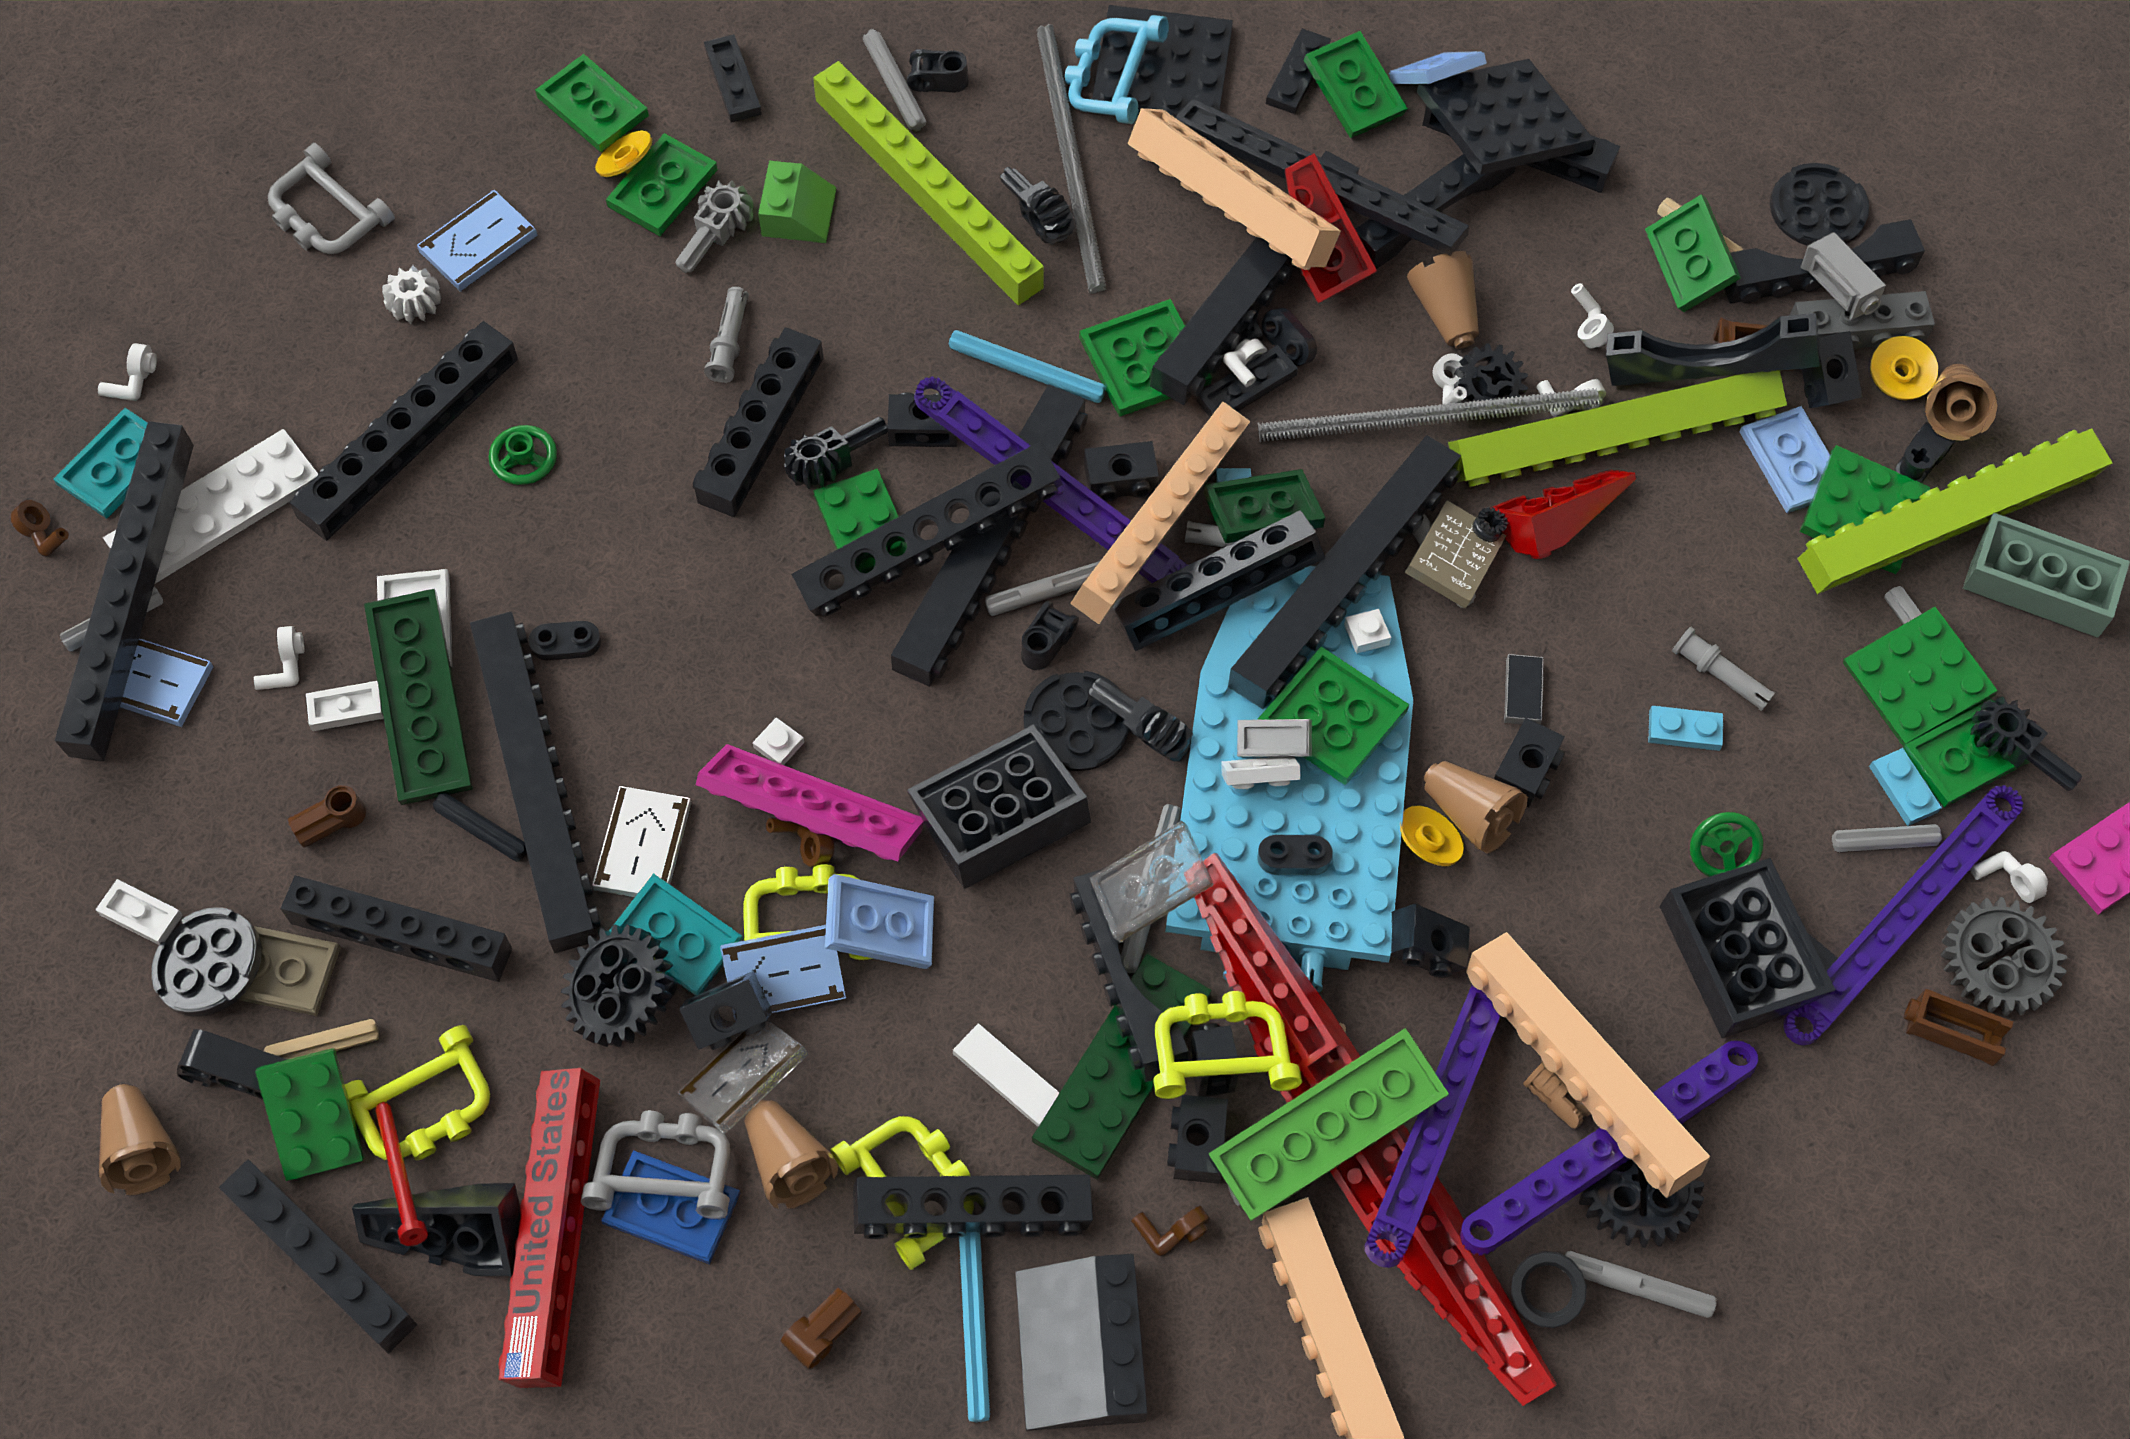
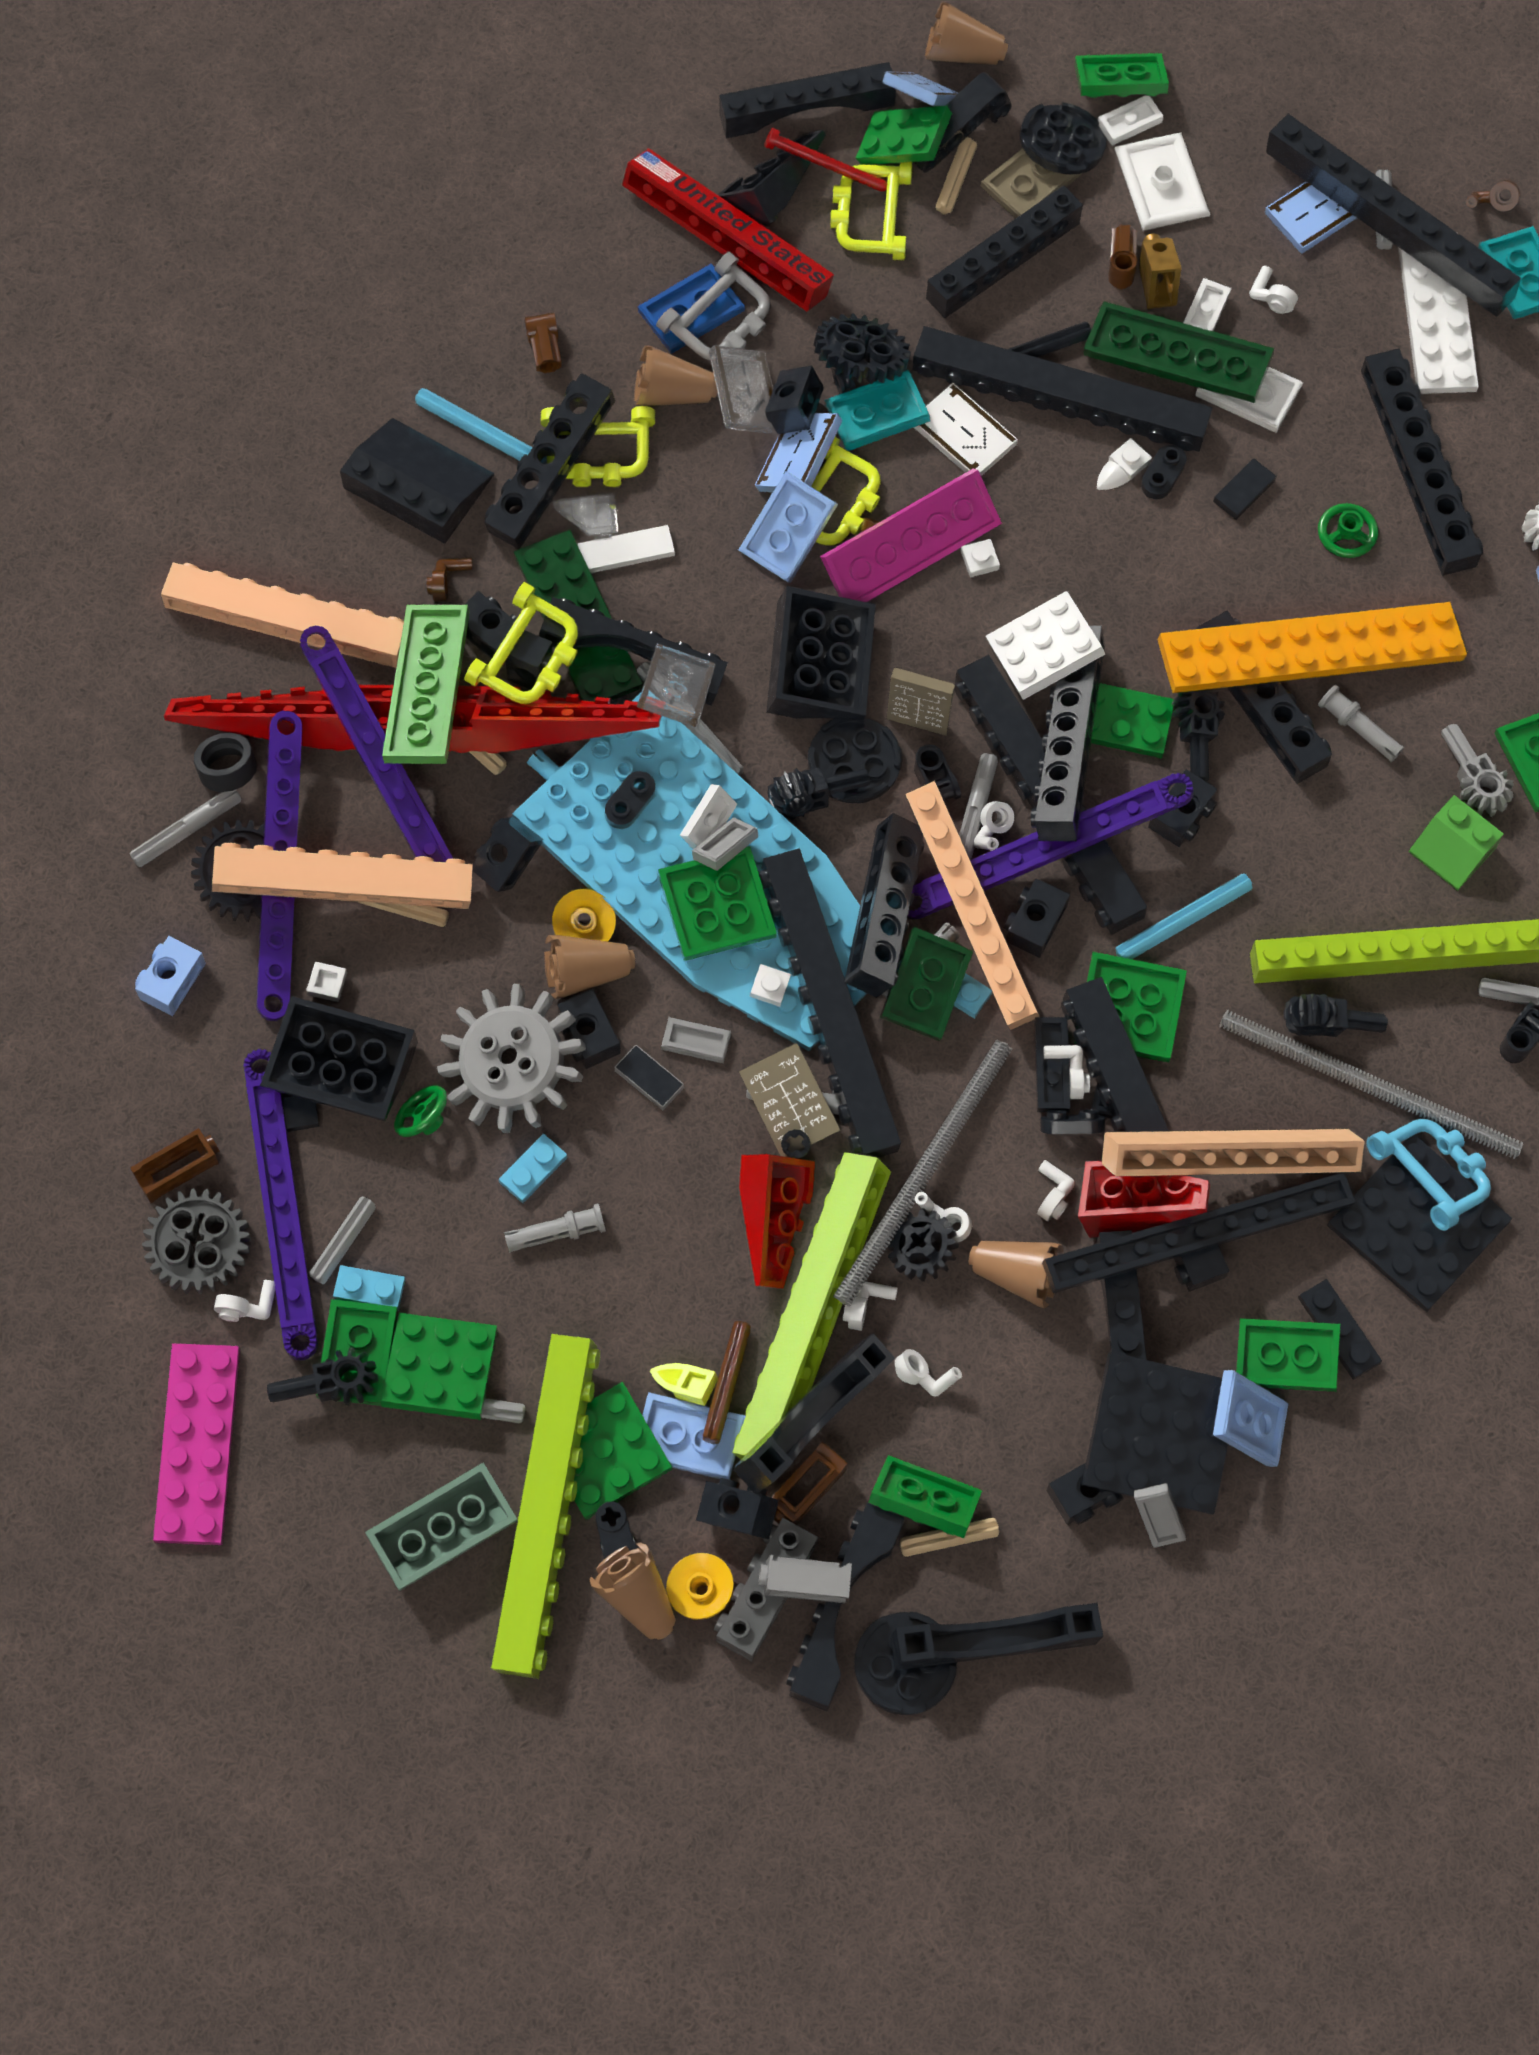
camera: 125 degrees right, 5 degrees up
(85, 949) = (1121, 74): none -> green plate
(200, 841) = (1162, 181): none -> white piece
(237, 1124) = (919, 88): none -> light blue tile
(325, 763) = (1159, 256): none -> pearl gold torso
(536, 561) = (1244, 489): none -> black tile
(581, 680) = (1123, 465): none -> white plate
(686, 402) = (1311, 647): none -> light orange plate
(846, 610) = (1045, 645): none -> white plate
(993, 669) = (920, 701): none -> dark tan tile
(999, 1127) = (590, 514): none -> clear slope
(1051, 561) = (1004, 821): none -> white plate
(1367, 313) = (1054, 1203): none -> white plate
(1457, 675) = (696, 1040): none -> light grey tile
(1563, 89) = (1160, 1515): none -> light grey tile
(1597, 824) = (514, 1087): none -> light grey gear
(1676, 1025) = (326, 981): none -> white plate
(1730, 452) = (726, 1382): none -> reddish brown axle
(1756, 485) = (686, 1381): none -> neon yellow plate
(1803, 175) = (1033, 1633): none -> black arch
(1814, 1161) = (169, 993): none -> light blue brick

